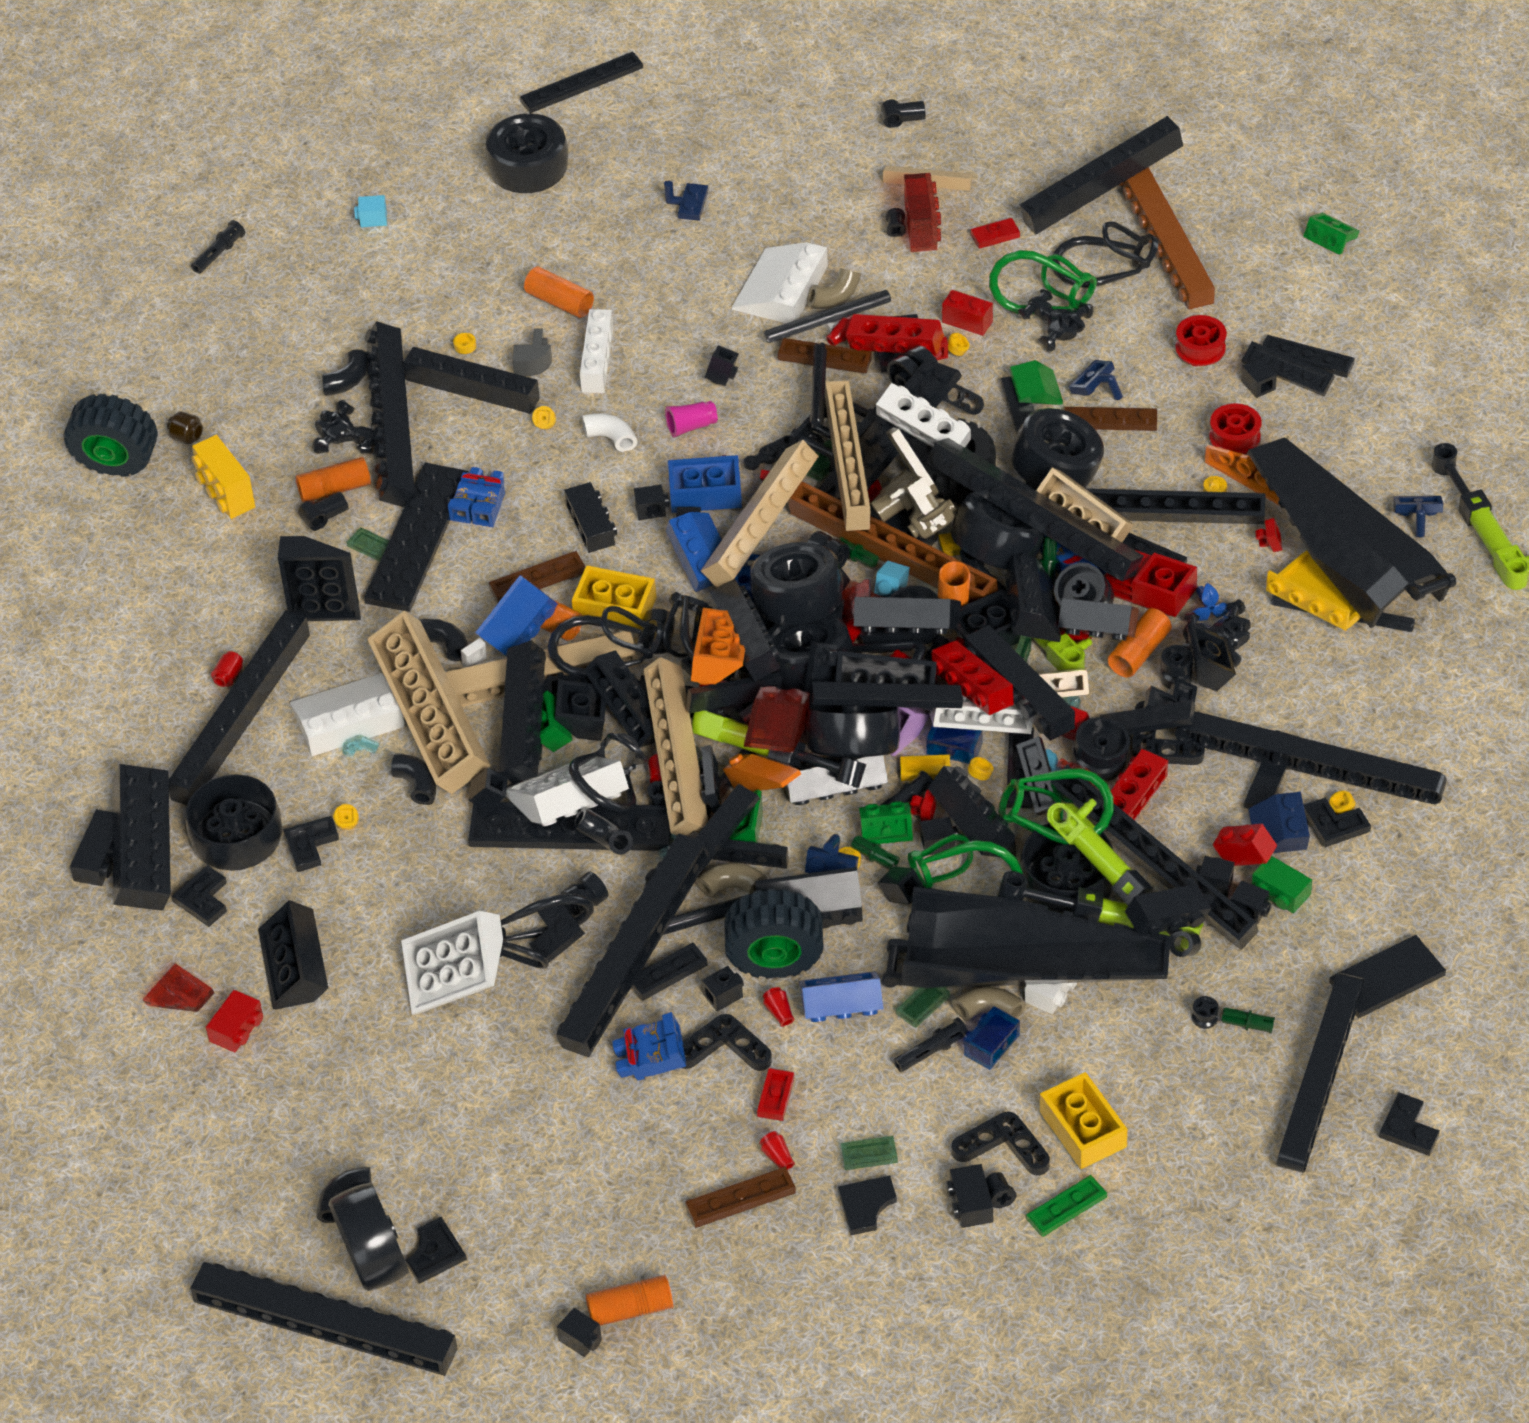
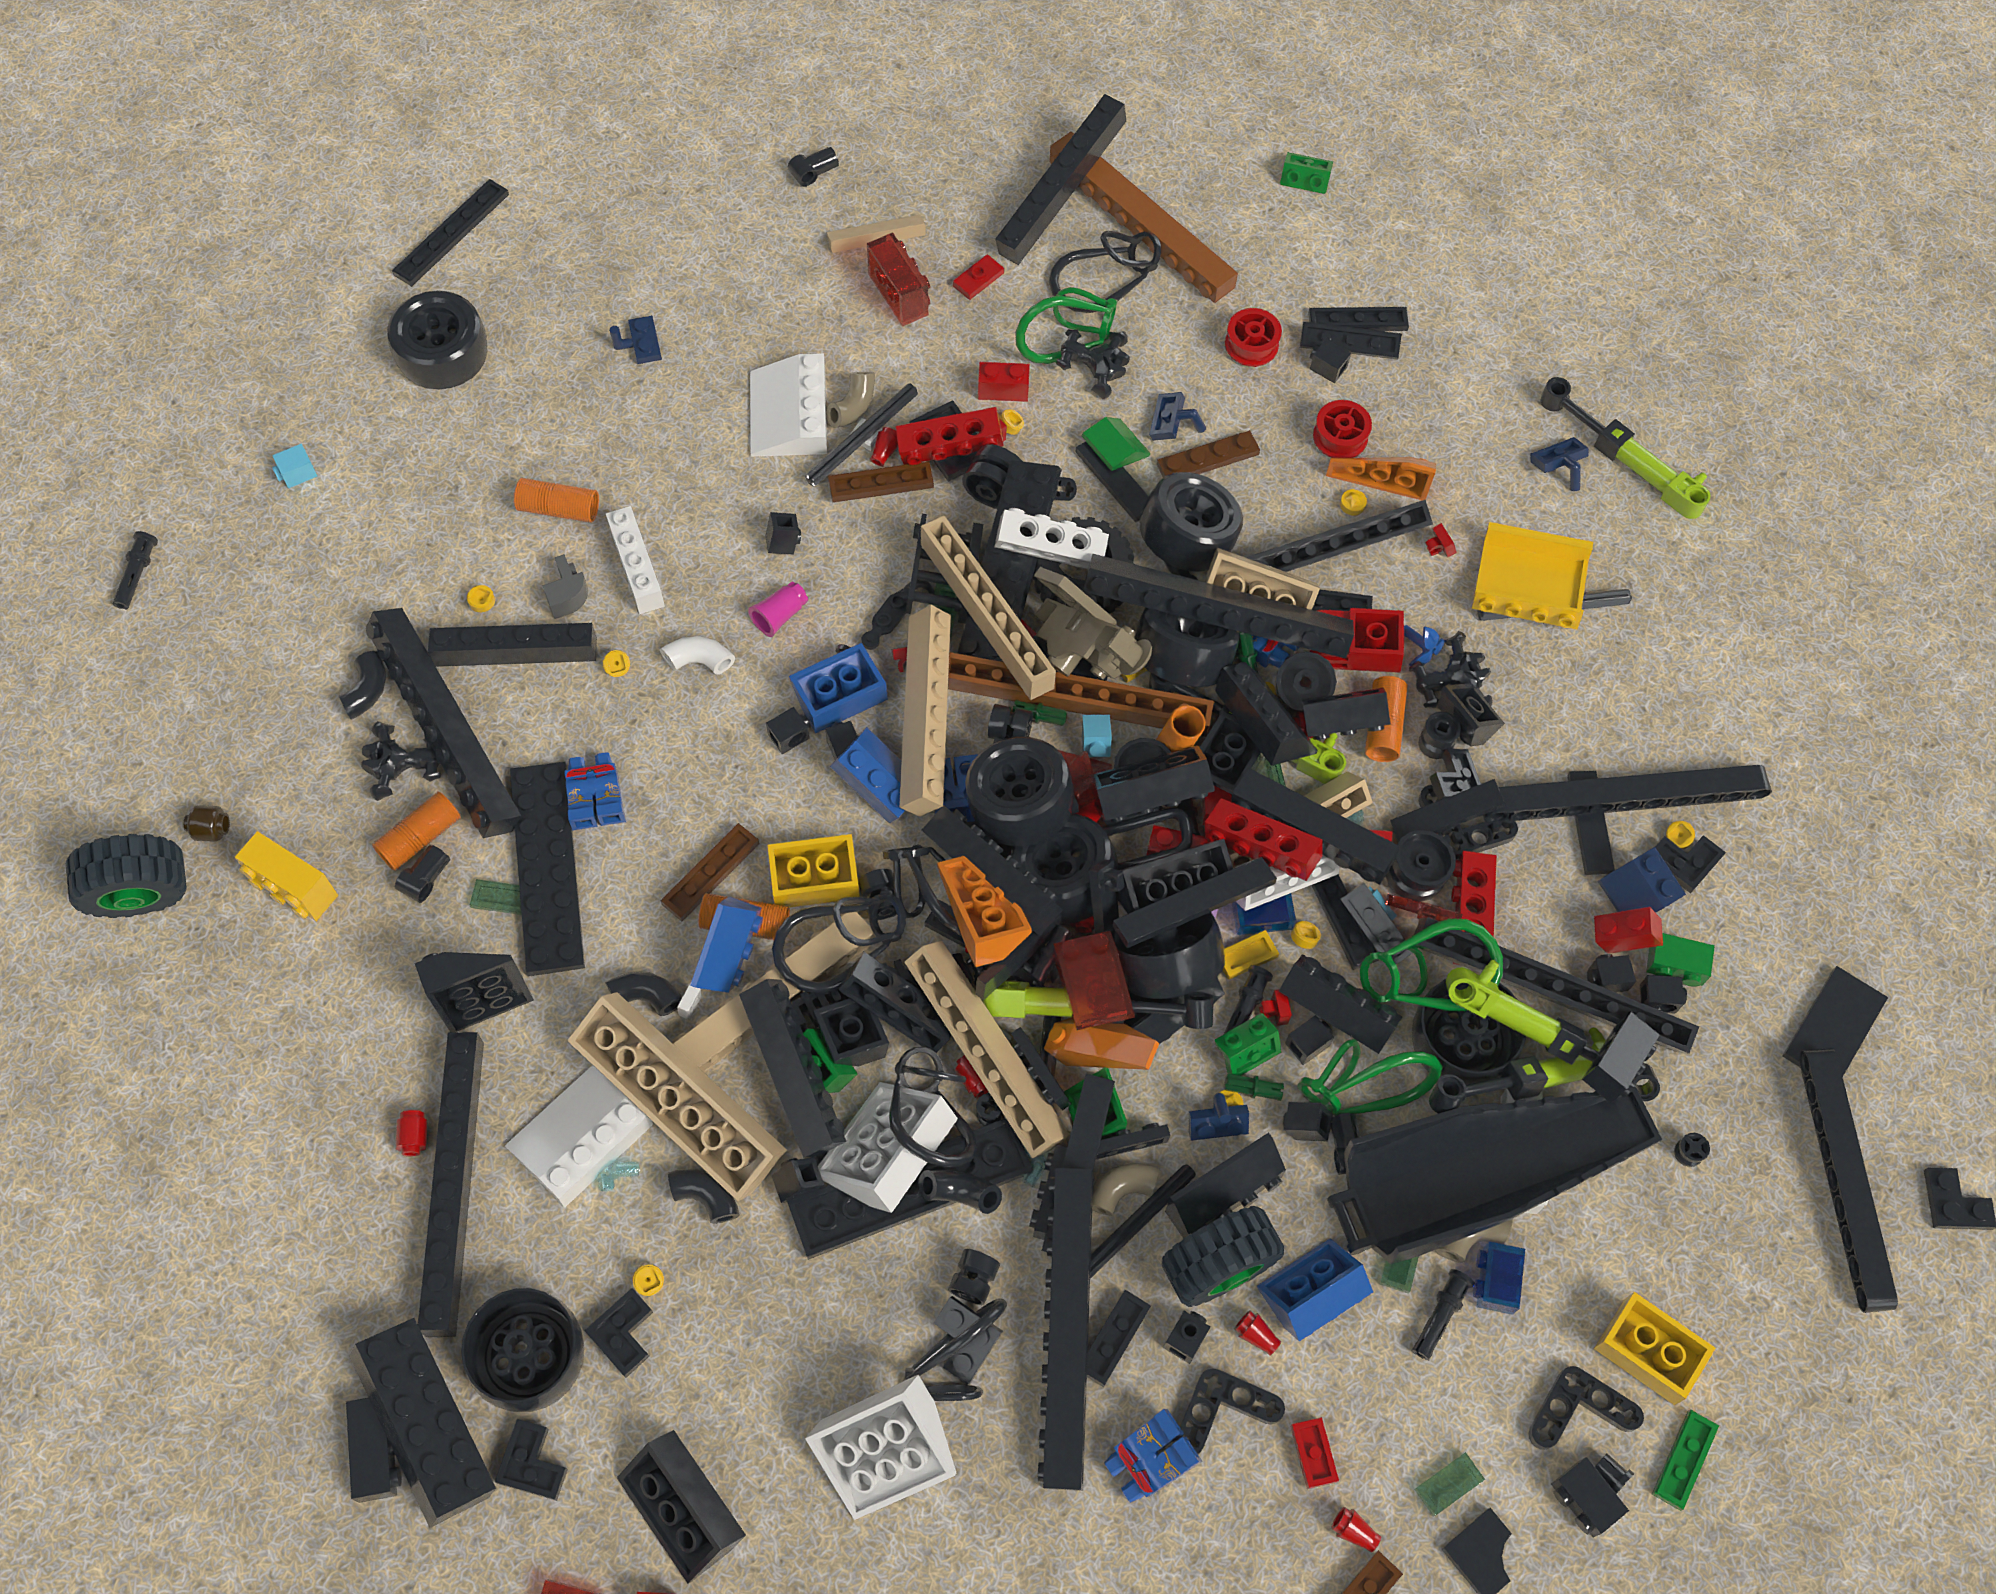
camera: 30 degrees left, 15 degrees up
(590, 517) = (732, 773): black brick -> none
(818, 385) = (904, 527): black axle -> none
(895, 219) = (872, 297): black bush -> none
(1248, 1020) = (1738, 1140): dark green axle -> none
(1348, 537) = (1540, 527): black windscreen -> none

